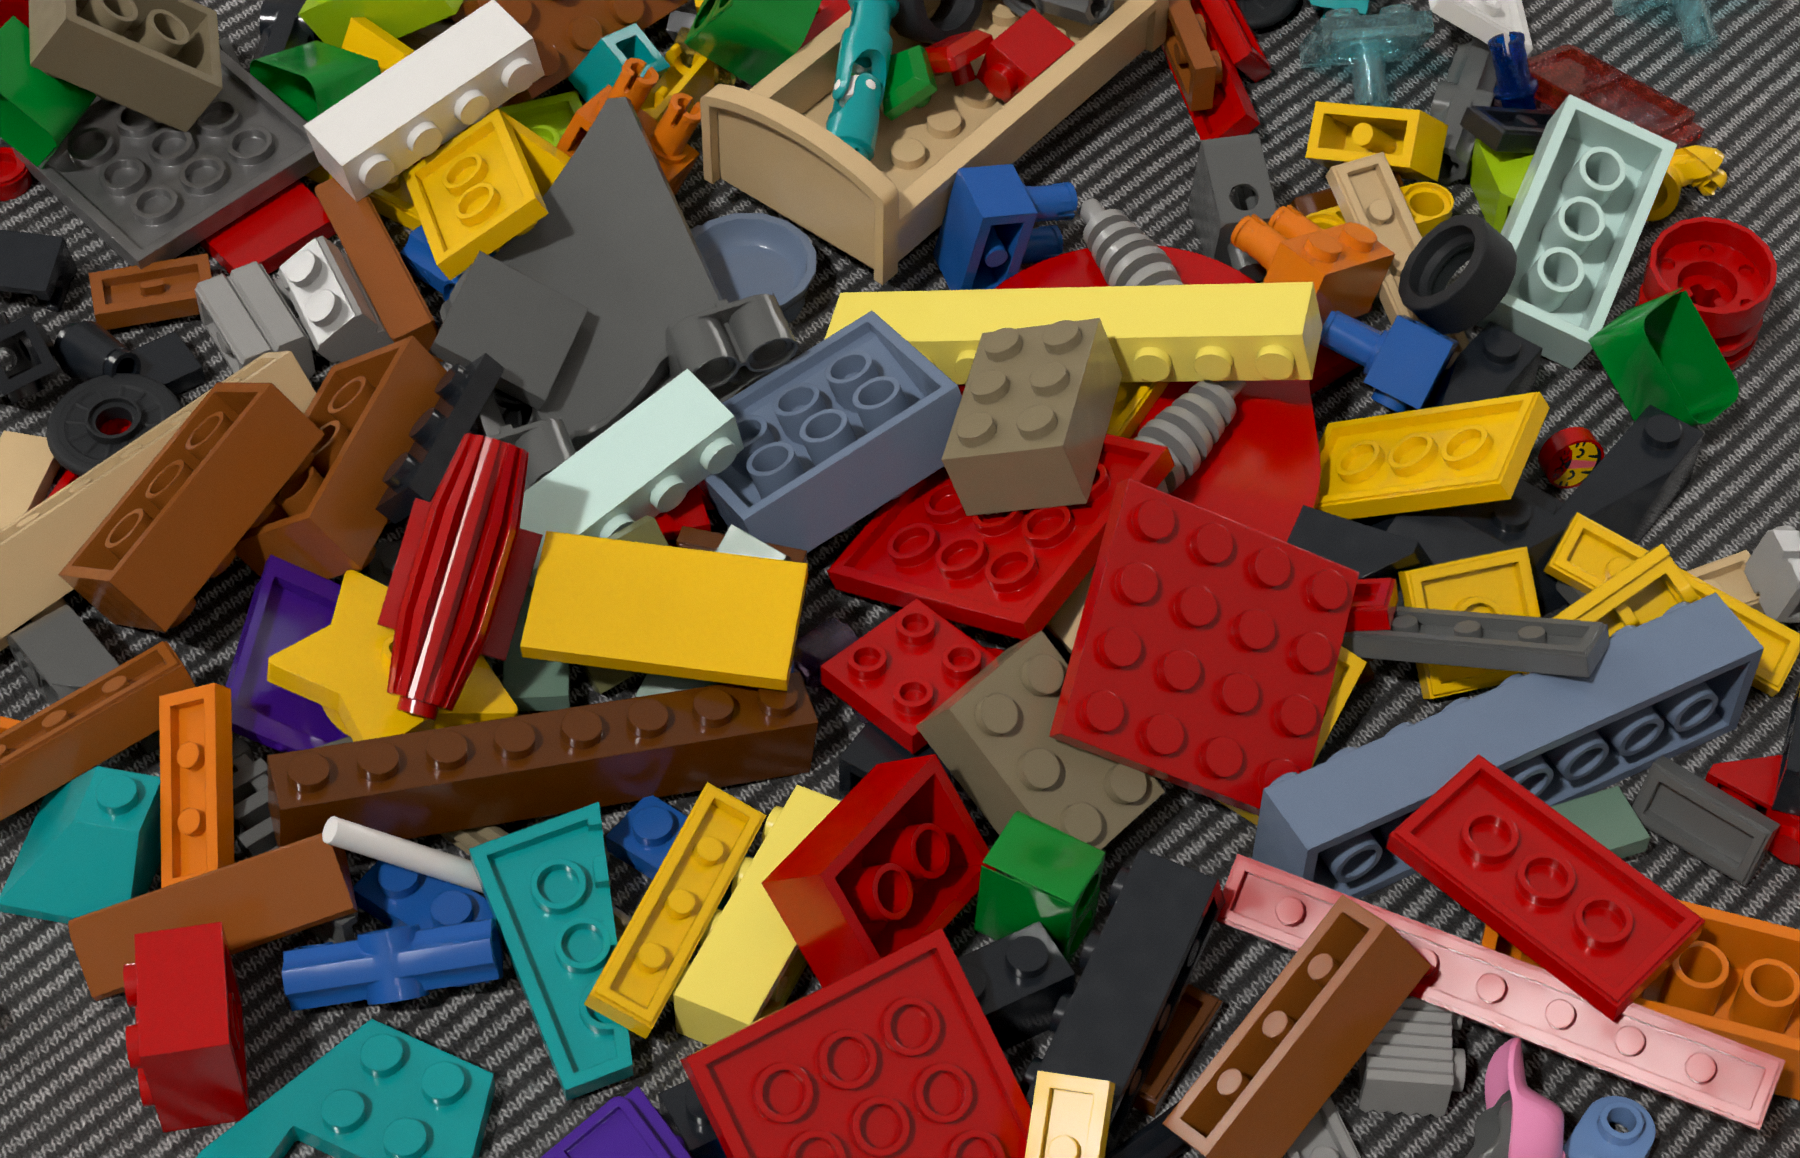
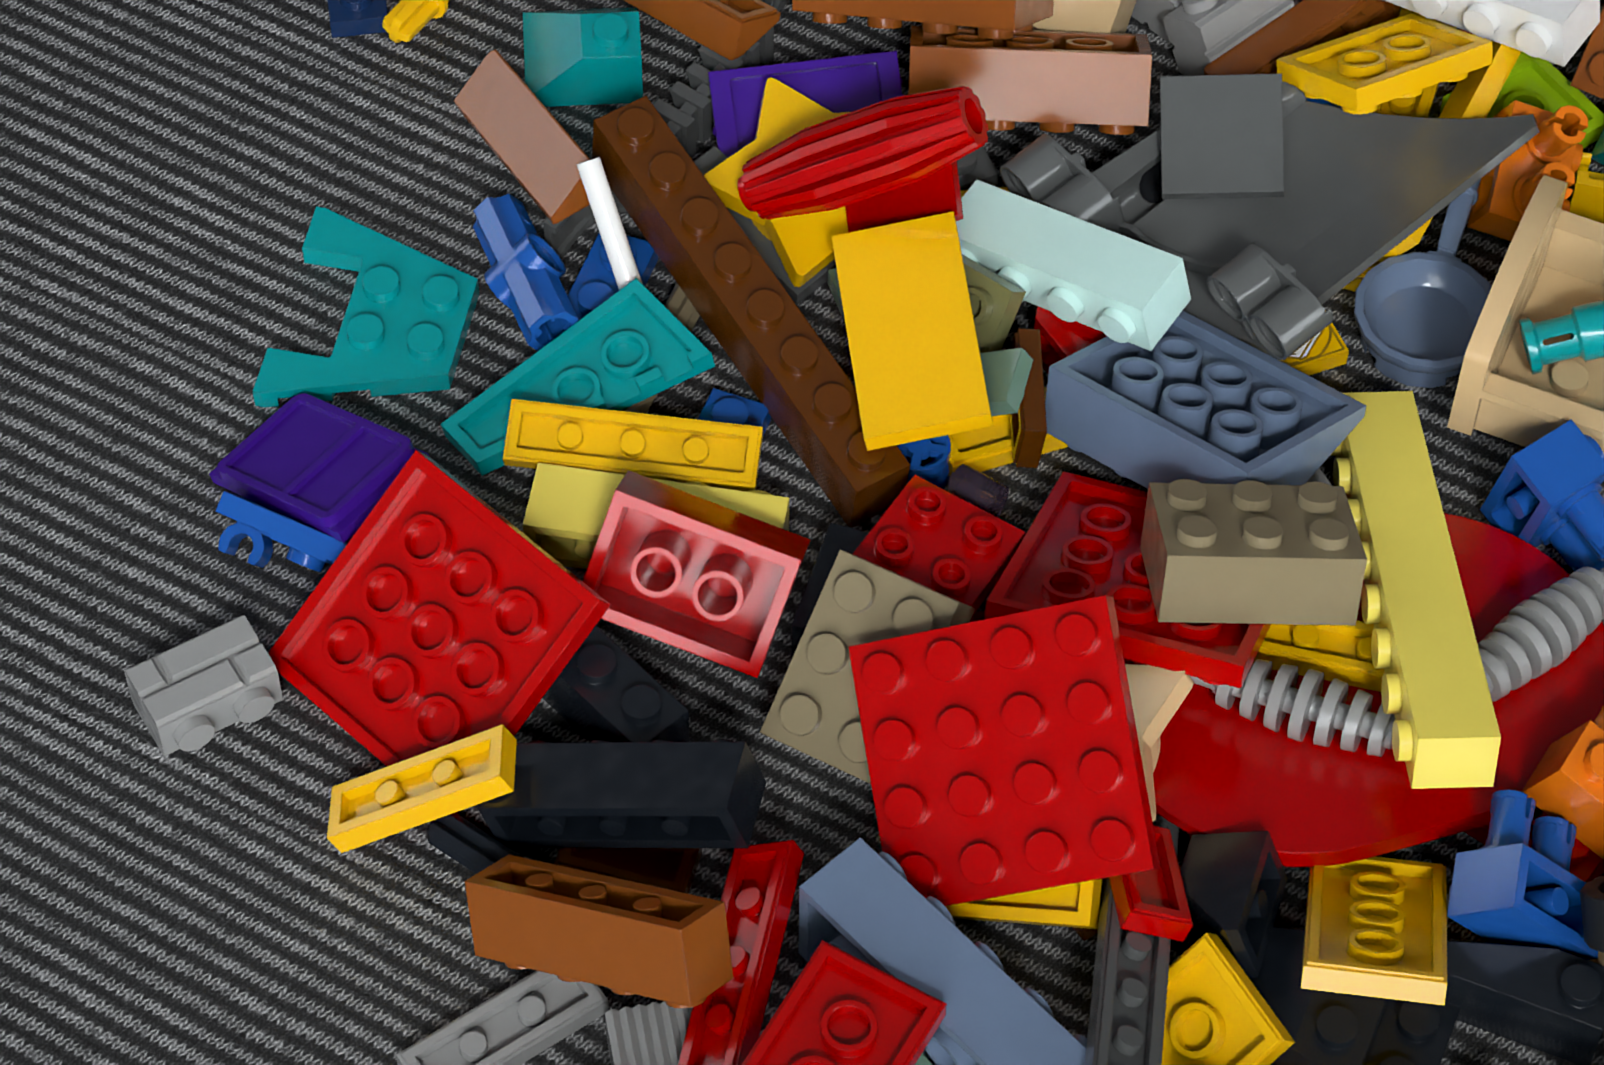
camera: 75 degrees right, 5 degrees up
(187, 1027) = (413, 153): red brick -> none
(196, 782) = (677, 59): orange plate -> none
(438, 436) = (1063, 114): black plate -> none
(1049, 882) = (730, 690): green piece -> none

